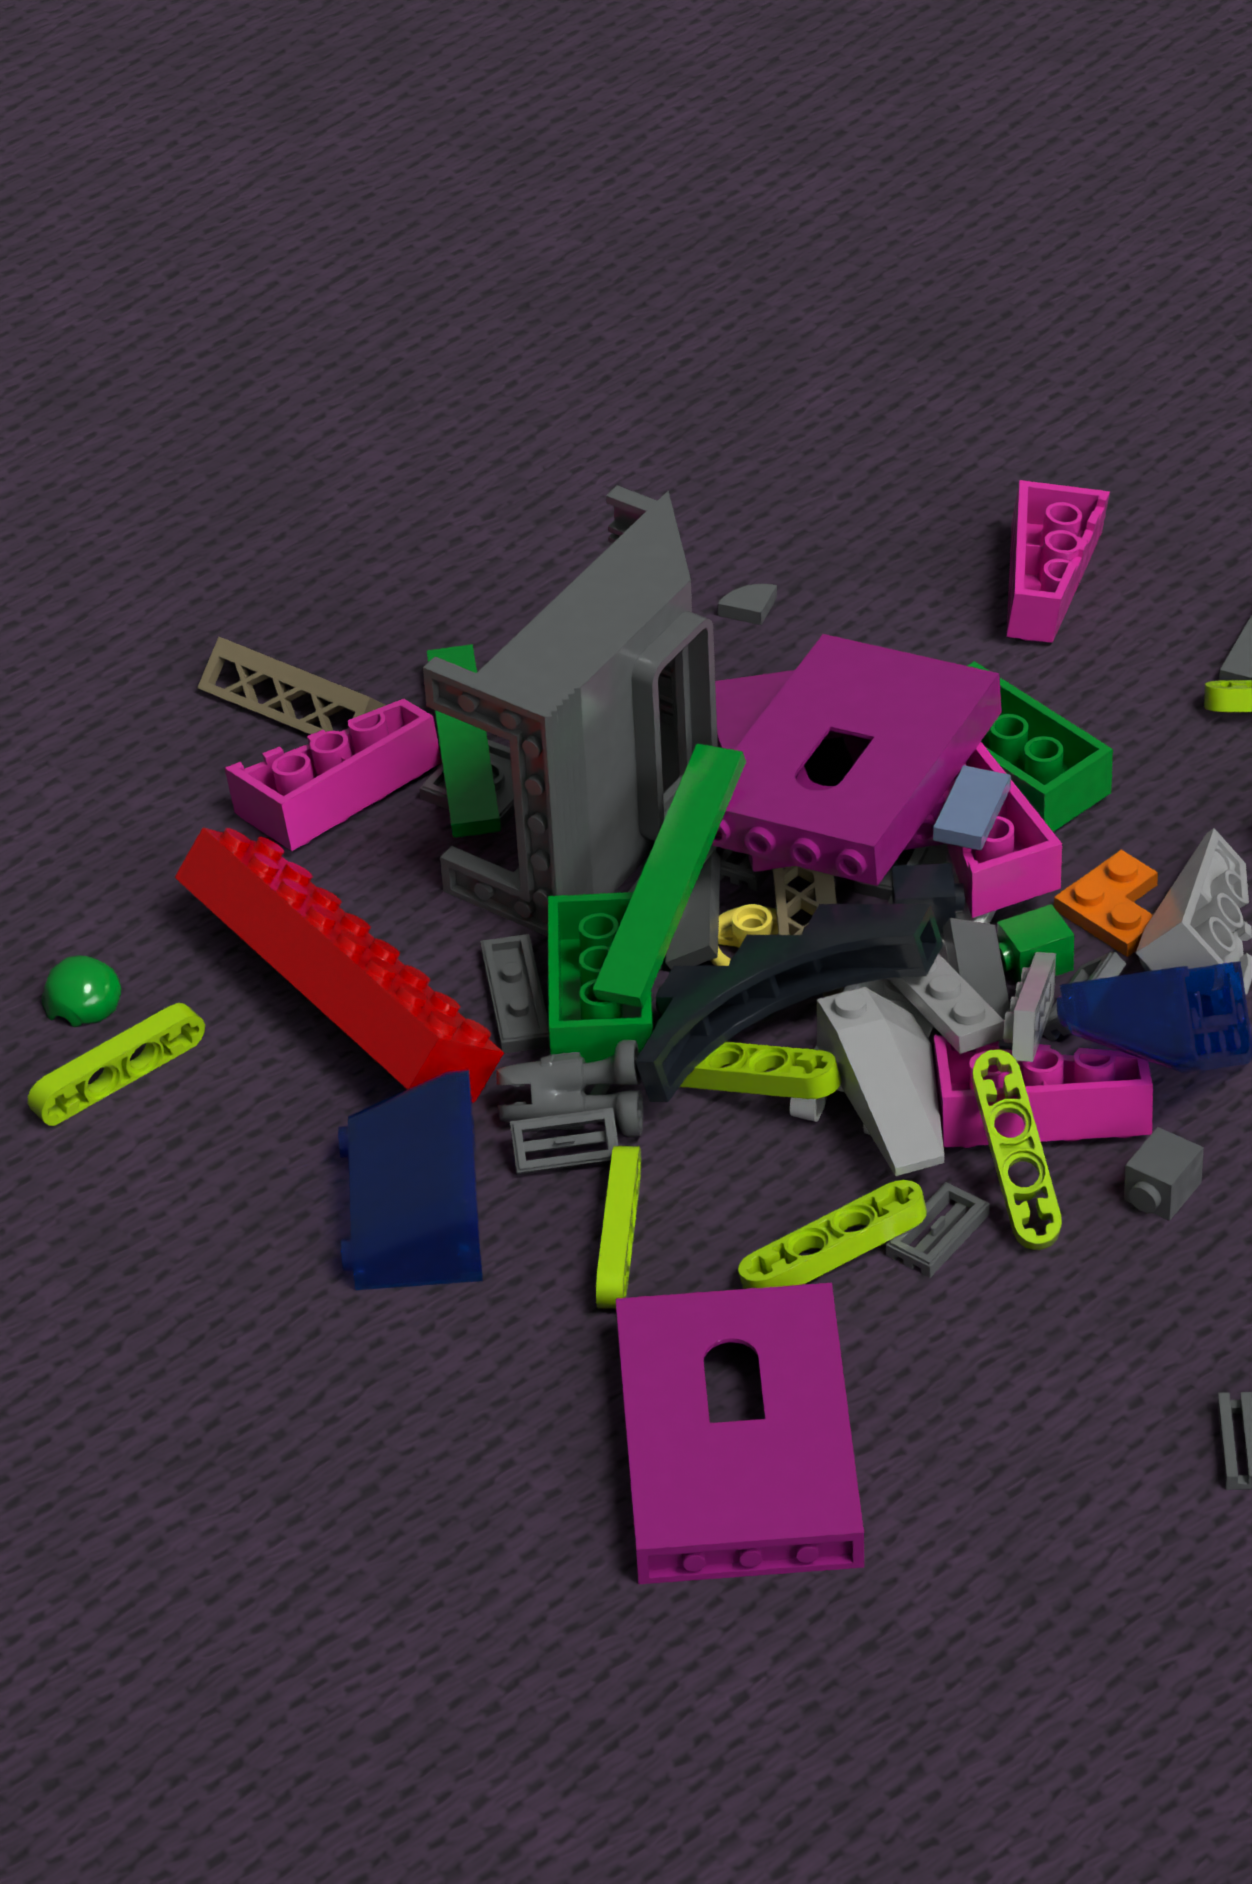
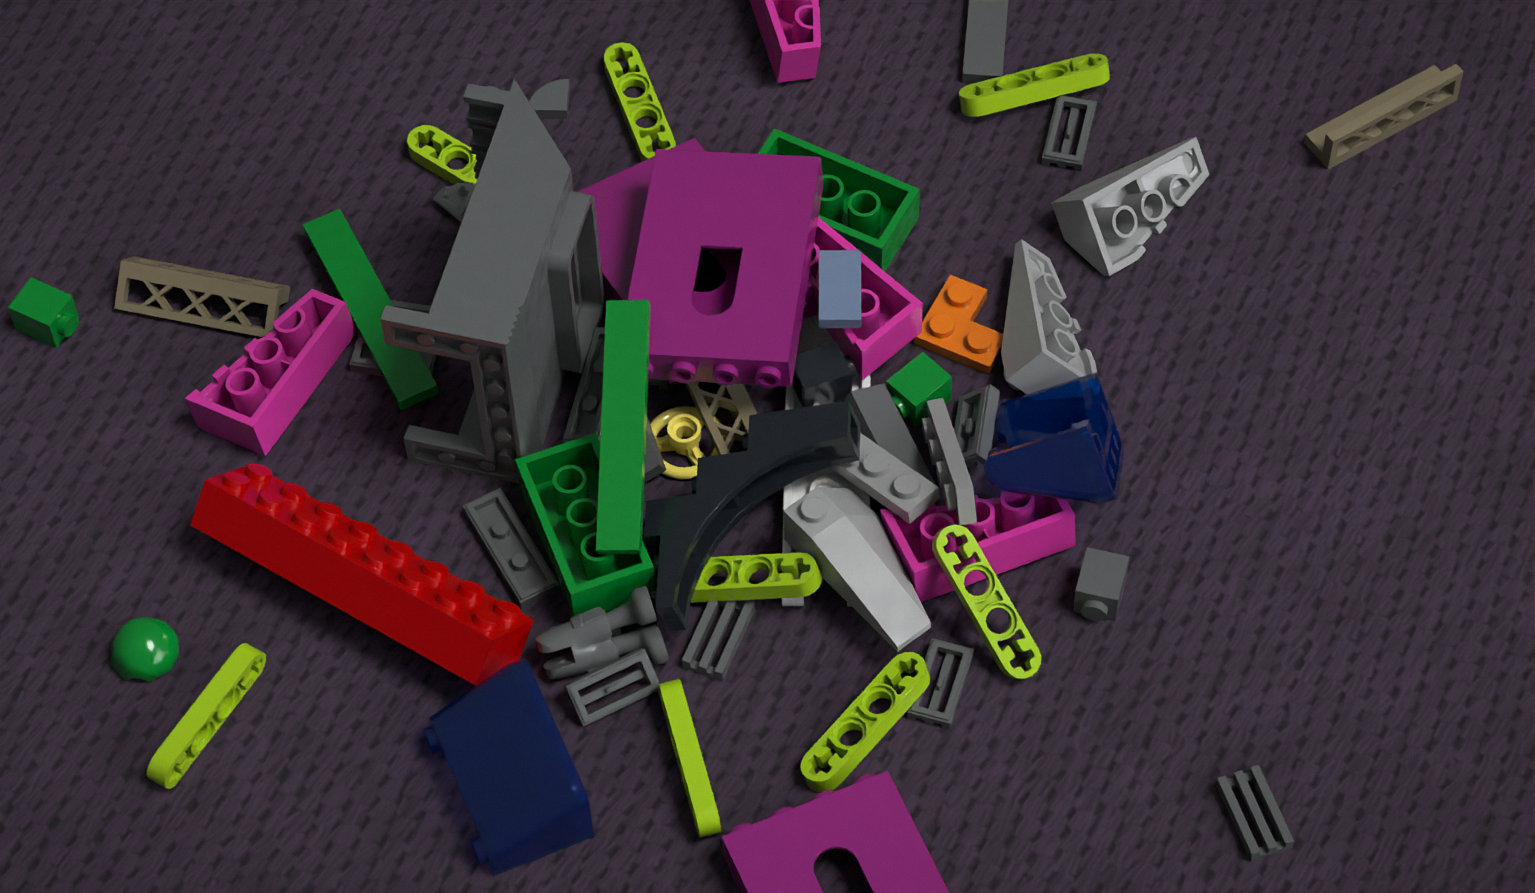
camera: 20 degrees left, 15 degrees up
(120, 671) = (44, 312): none -> green brick
(699, 1120) = (703, 667): none -> dark grey tile
(846, 627) = (638, 107): none -> lime beam

